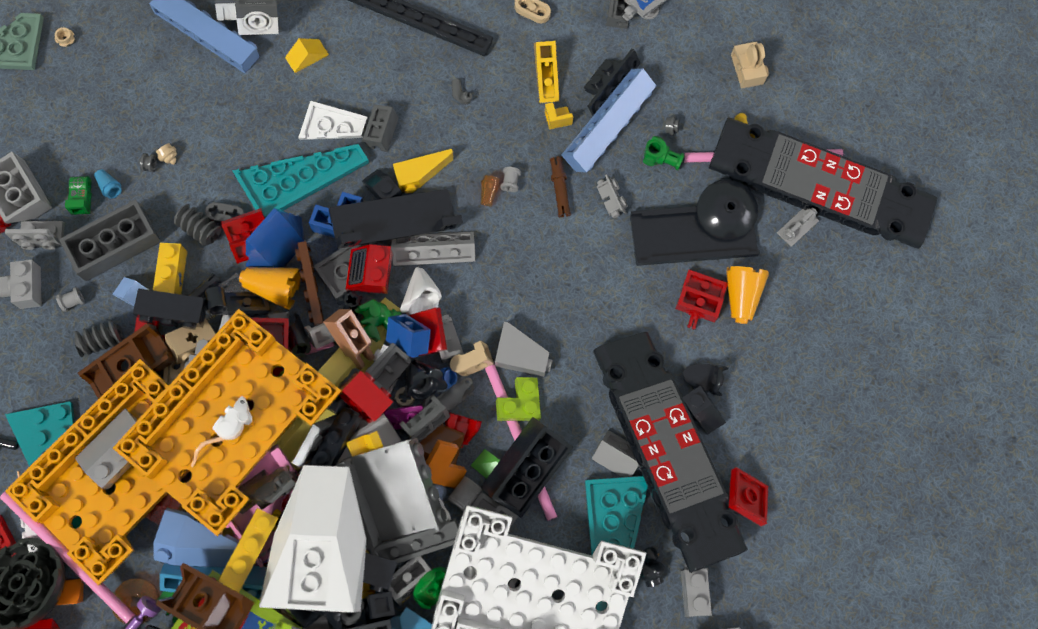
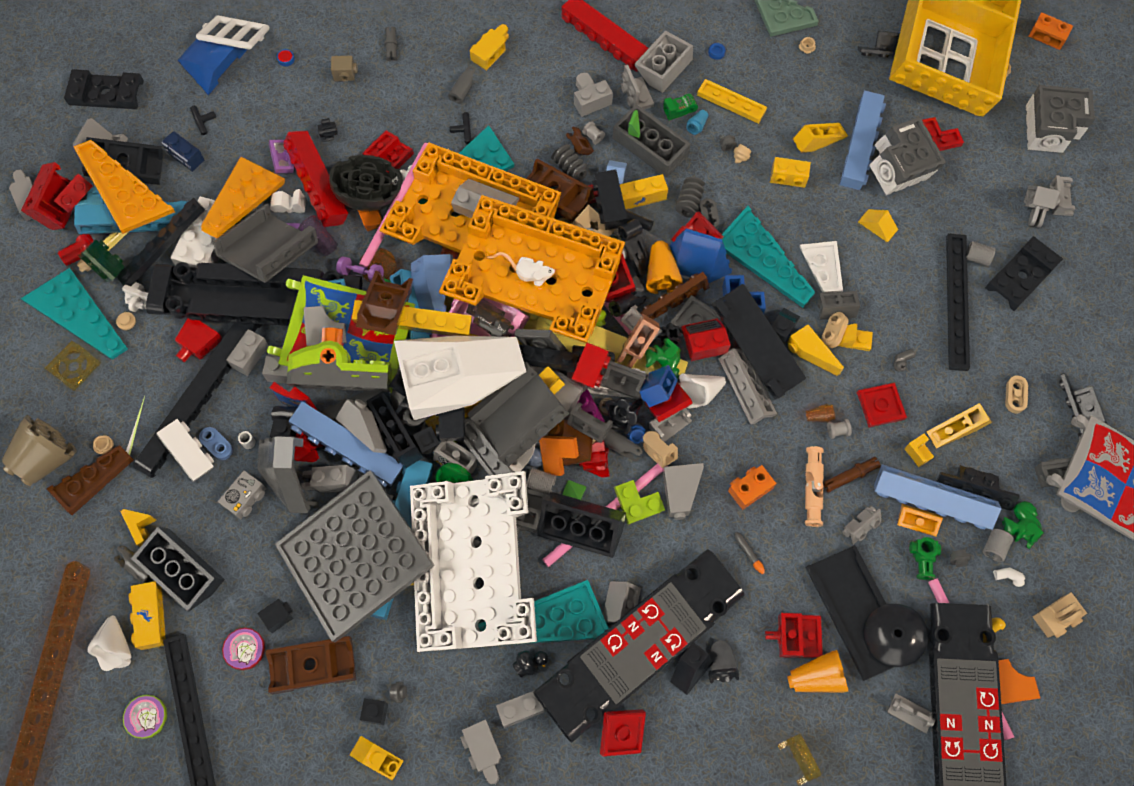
camera: 75 degrees right, 5 degrees down
(26, 131) = (716, 51): none -> blue tile
(77, 318) = (580, 143): none -> reddish brown plate
(90, 251) = (634, 128): none -> bright green slope
(97, 139) = (732, 101): none -> yellow plate
(181, 69) = (817, 136): none -> yellow slope
(212, 114) = (790, 172): none -> yellow brick
(405, 141) = (835, 330): none -> tan plate
(419, 129) = (856, 338): none -> yellow slope
(499, 131) = (881, 405): none -> red plate
(542, 284) = (752, 486): none -> orange brick
(545, 219) = (814, 483): none -> light nougat piece
(606, 312) = (749, 553): none -> dark grey piece
(623, 145) = (919, 520): none -> light orange slope
(662, 56) = (1028, 525): none -> green animal
(670, 87) = (998, 543): none -> light grey piece
(703, 85) = (1017, 577): none -> white arm
(799, 126) = (1015, 686): none -> orange tile
(817, 335) = (803, 758): none -> clear yellow piece

